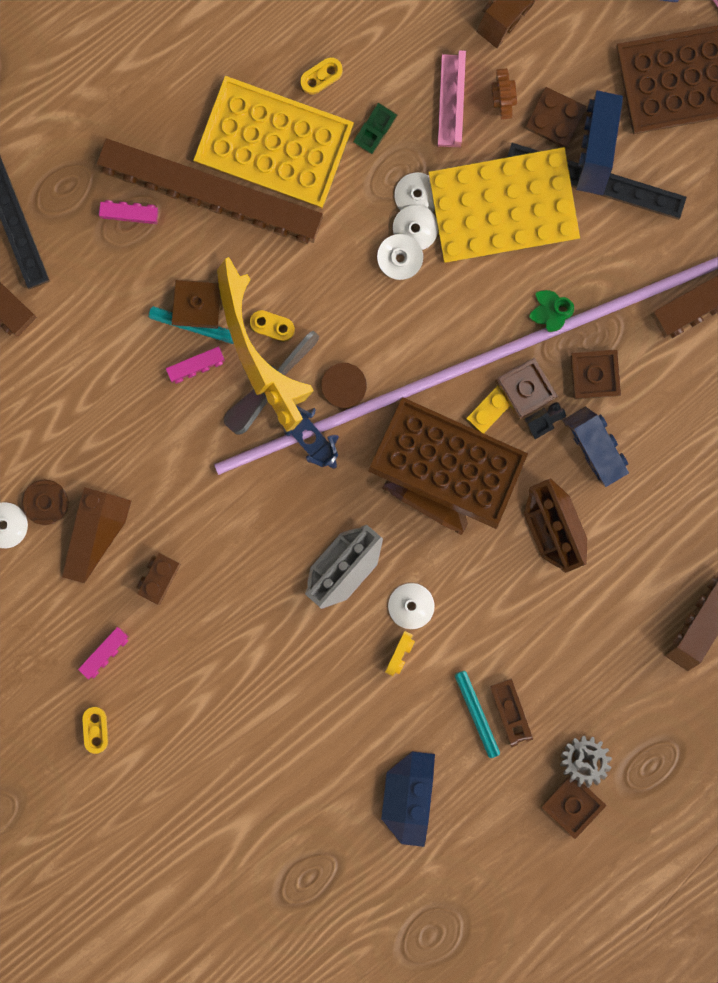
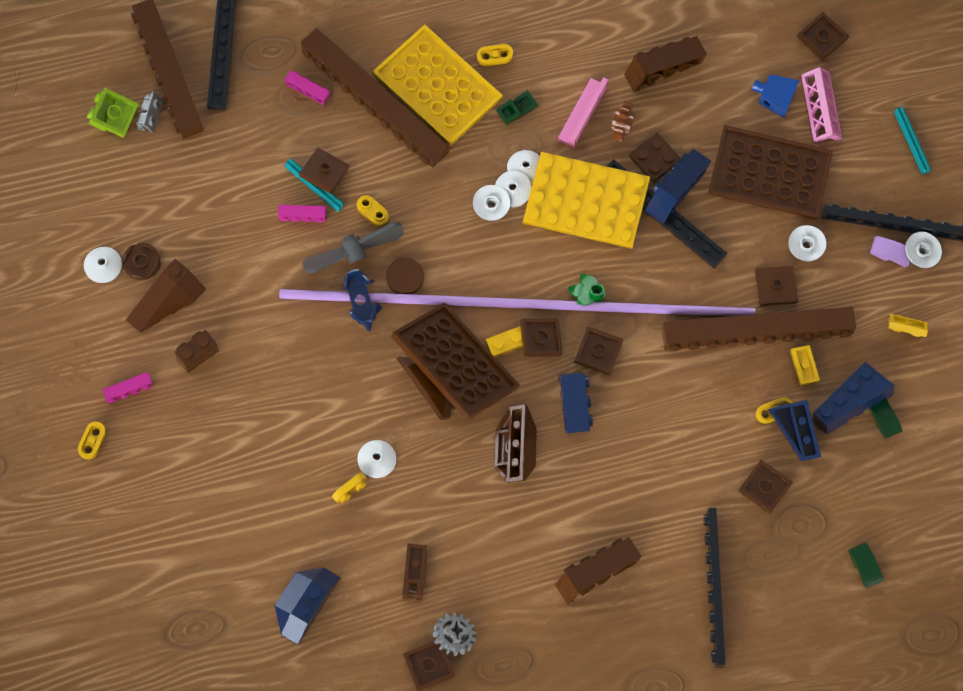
camera: 25 degrees right, 15 degrees down
(279, 390) = (354, 251): yellow slope -> none
(343, 566) = (340, 404): light grey wedge -> none
(477, 714) = (387, 566): teal axle -> none
(543, 420) = (541, 366): black plate -> none

